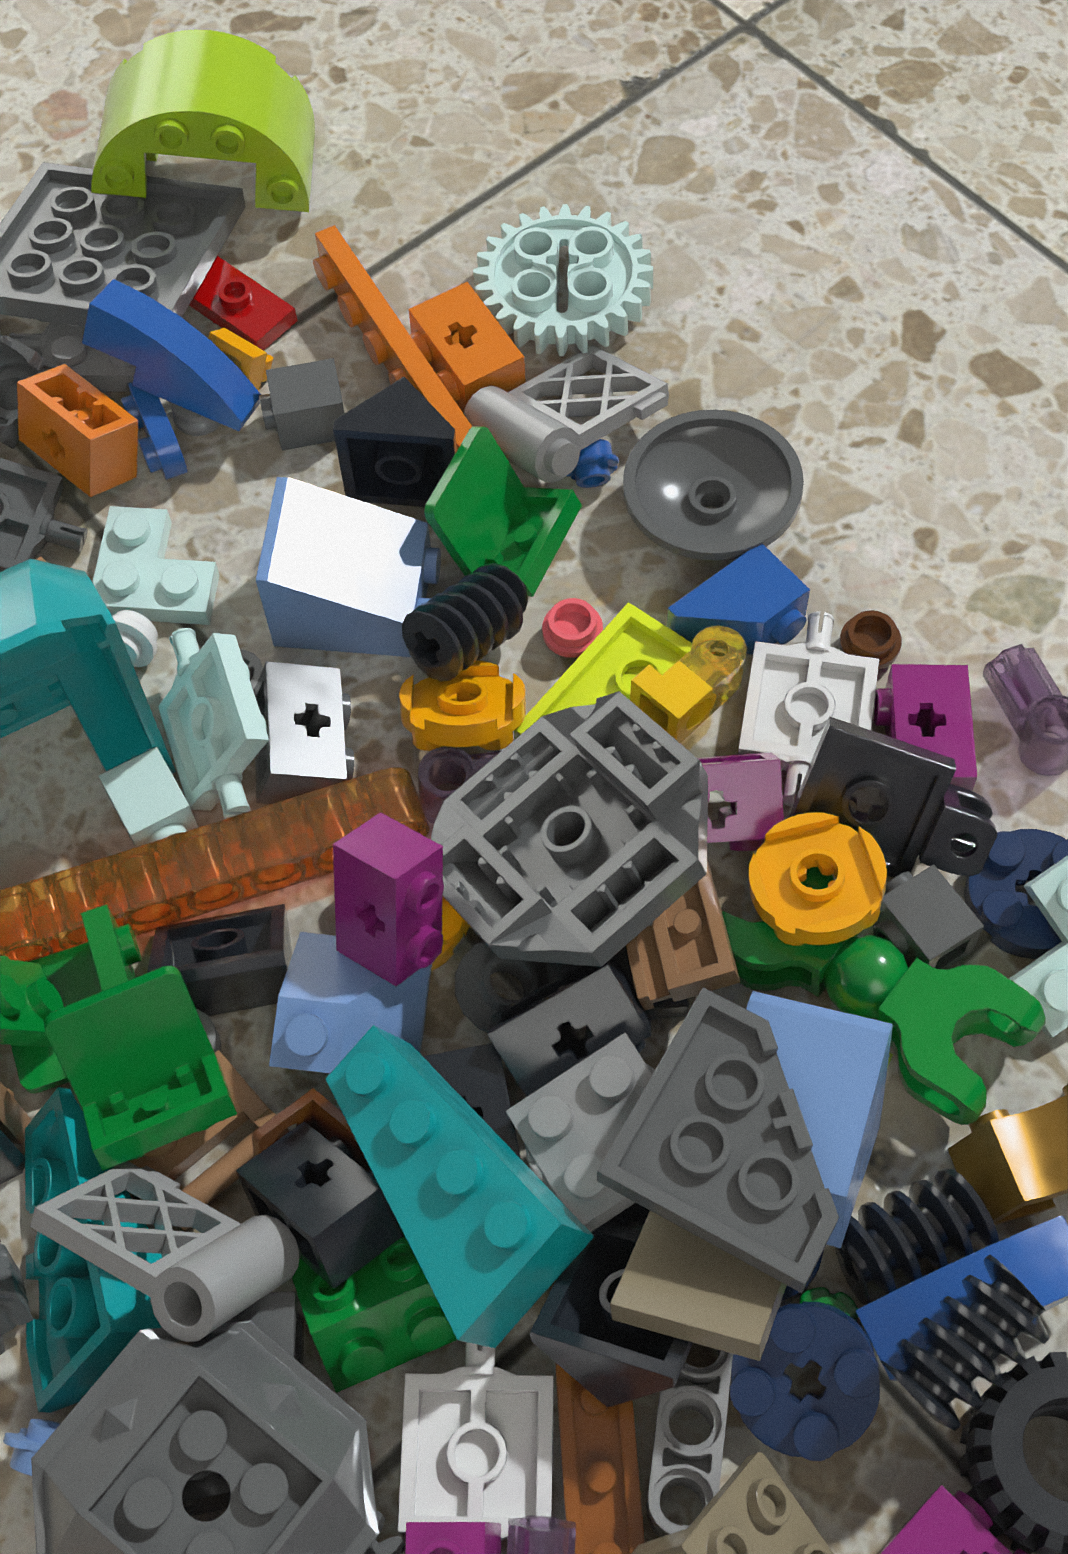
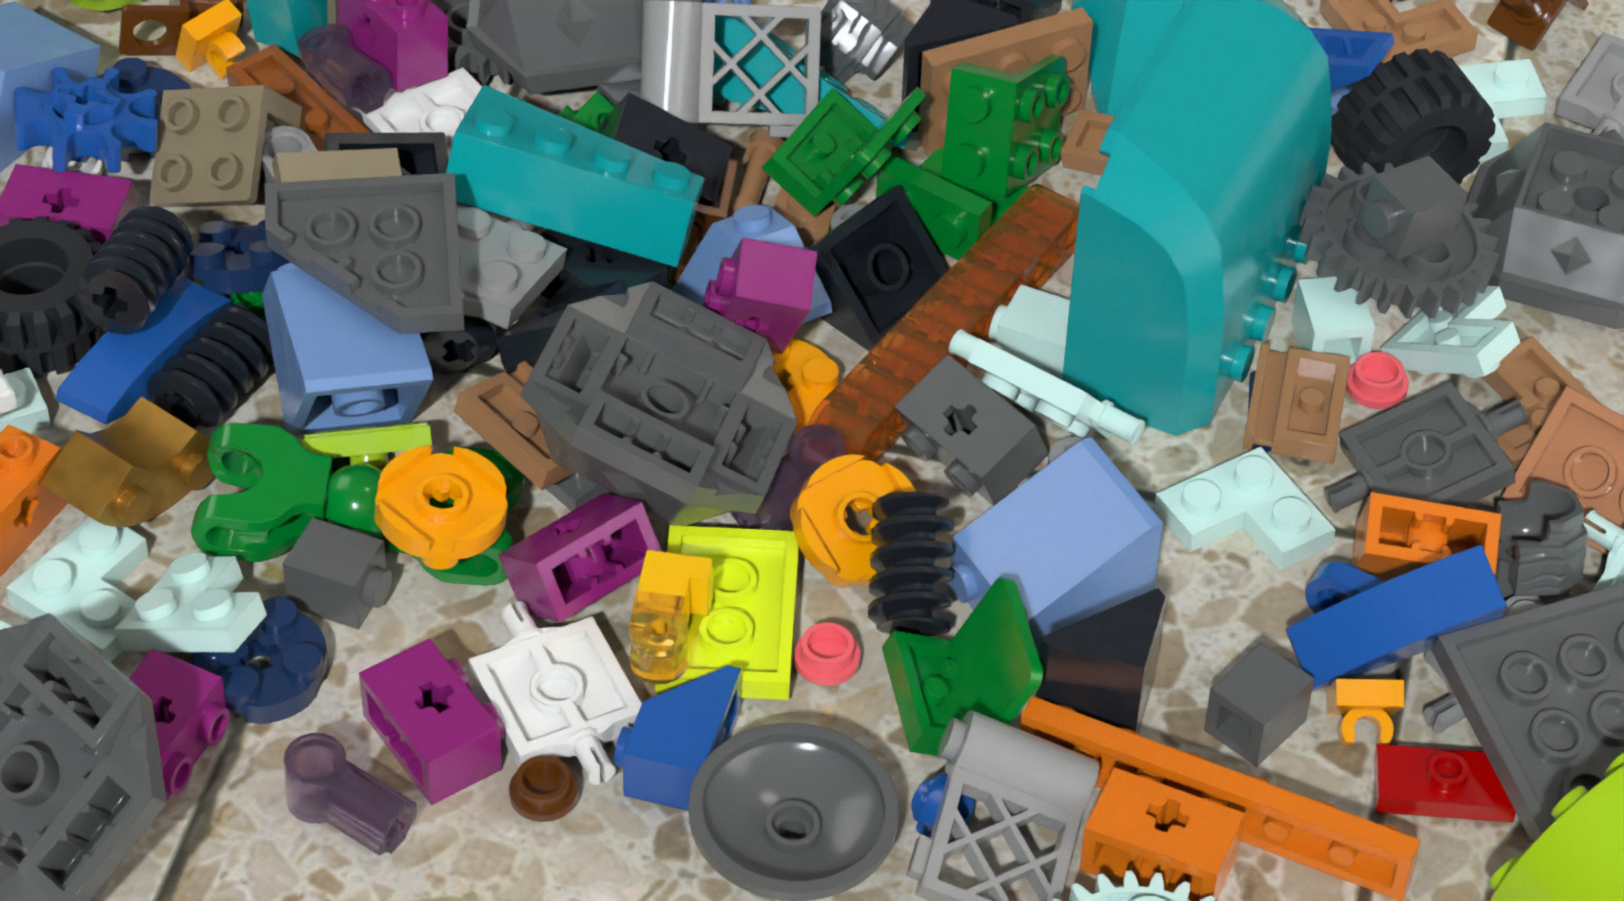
camera: 140 degrees right, 15 degrees down
(138, 636) = (1194, 437): white plate -> none
(921, 807) = (416, 618): black plate -> none

